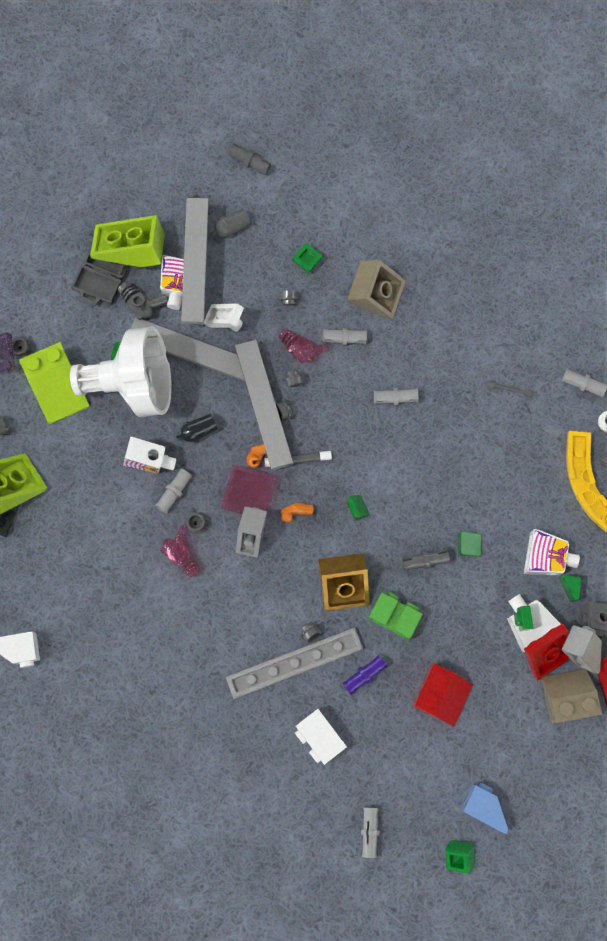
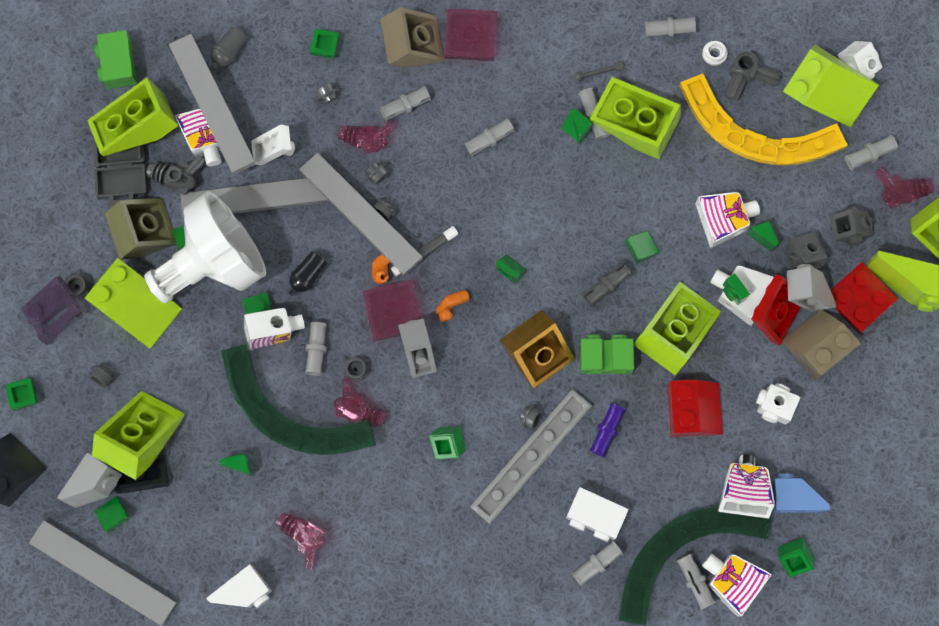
camera: 20 degrees left, 0 degrees up
(67, 548) = (238, 463): none -> green slope
(87, 629) = (305, 534): none -> clear pink piece
(91, 327) = (140, 227): none -> olive slope
(112, 536) = (280, 428): none -> clear green plate
(142, 189) = (116, 59): none -> bright green brick
(148, 433) = (257, 303): none -> green plate
(235, 617) = (447, 442): none -> green slope
(300, 775) = (597, 563): none -> light grey pin
(373, 787) = (668, 541): none -> clear green plate
(401, 849) = (735, 581): none -> torso
(424, 309) = (470, 34): none -> clear pink plate
(449, 782) = (747, 489): none -> white torso
(462, 624) = (677, 328): none -> lime slope
(469, 422) = (577, 125): none -> green slope
(488, 420) = (590, 102): none -> light grey pin
(518, 728) = (786, 402): none -> white brick
(519, 440) = (637, 117): none -> lime slope

